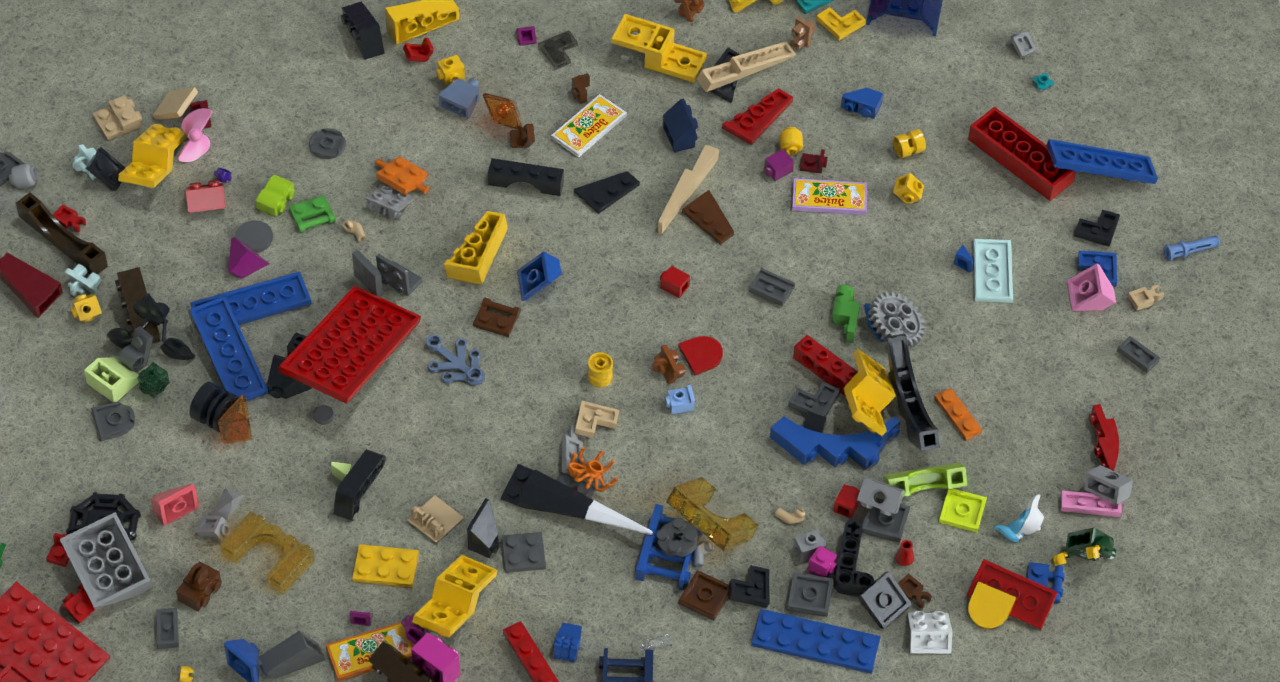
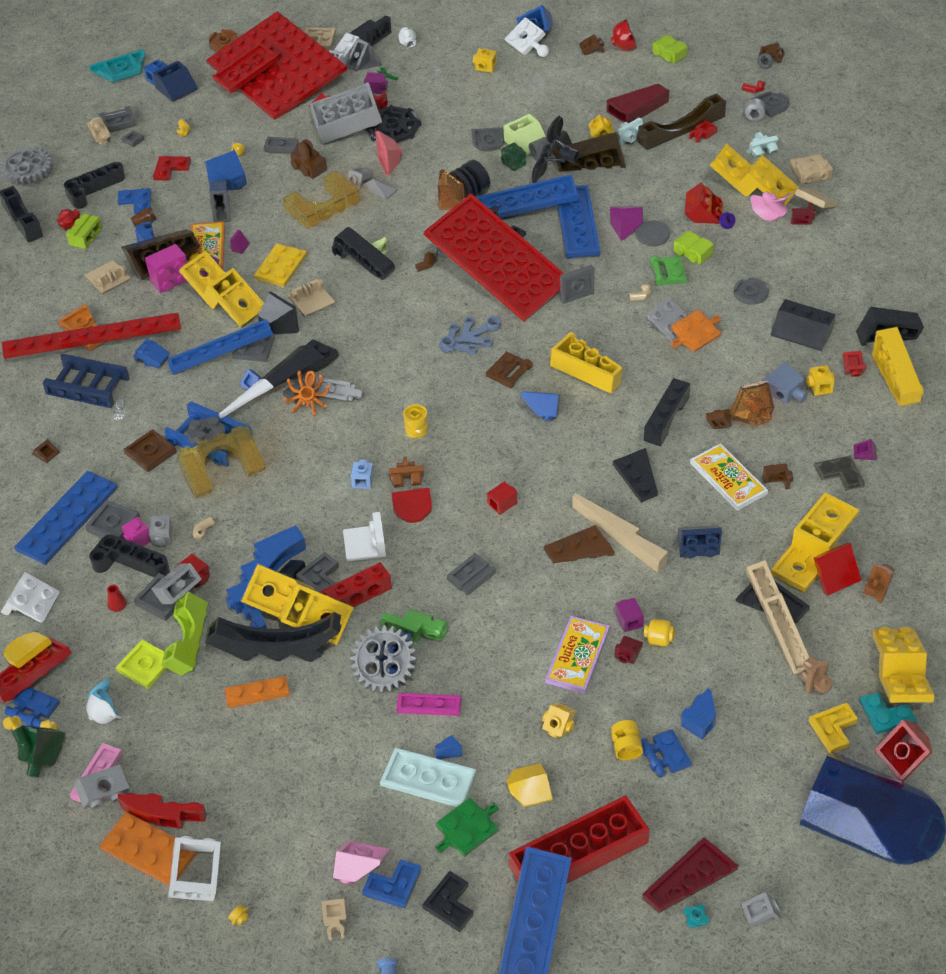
camera: 110 degrees right, 5 degrees down
(26, 558) = (377, 82): none -> magenta brick
(105, 168) = (749, 147): black plate -> none
(348, 424) = (427, 263): none -> reddish brown arm
(374, 93) = (803, 325): none -> black slope
(397, 276) = (571, 305): dark grey bracket -> none
(545, 572) = (219, 346): none -> blue plate
(582, 532) = (249, 379): none -> plate
(593, 414) = (369, 409): tan plate -> none
(683, 32) = (837, 568): none -> red tile
(754, 591) = (135, 483): black plate -> none
(758, 117) = (700, 611): red wing -> none
(761, 373) = (365, 541): none -> white bracket
(884, 599) = (73, 567): plate -> none
(905, 117) = (671, 750): none -> blue plate
(913, 590) = (77, 596): reddish brown plate -> none
(921, 287) = (428, 704): none -> dark pink tile
(970, 202) = (529, 785): none -> yellow slope
(1004, 86) = (692, 873): none -> dark red wing
(1028, 233) = (466, 827): none -> green plate
(1138, 354) = (259, 882): dark grey plate -> none
(1141, 443) = (145, 848): none -> orange plate
(1167, 359) = (239, 915): none -> yellow plate
(1168, 402) = (194, 890): none -> white window

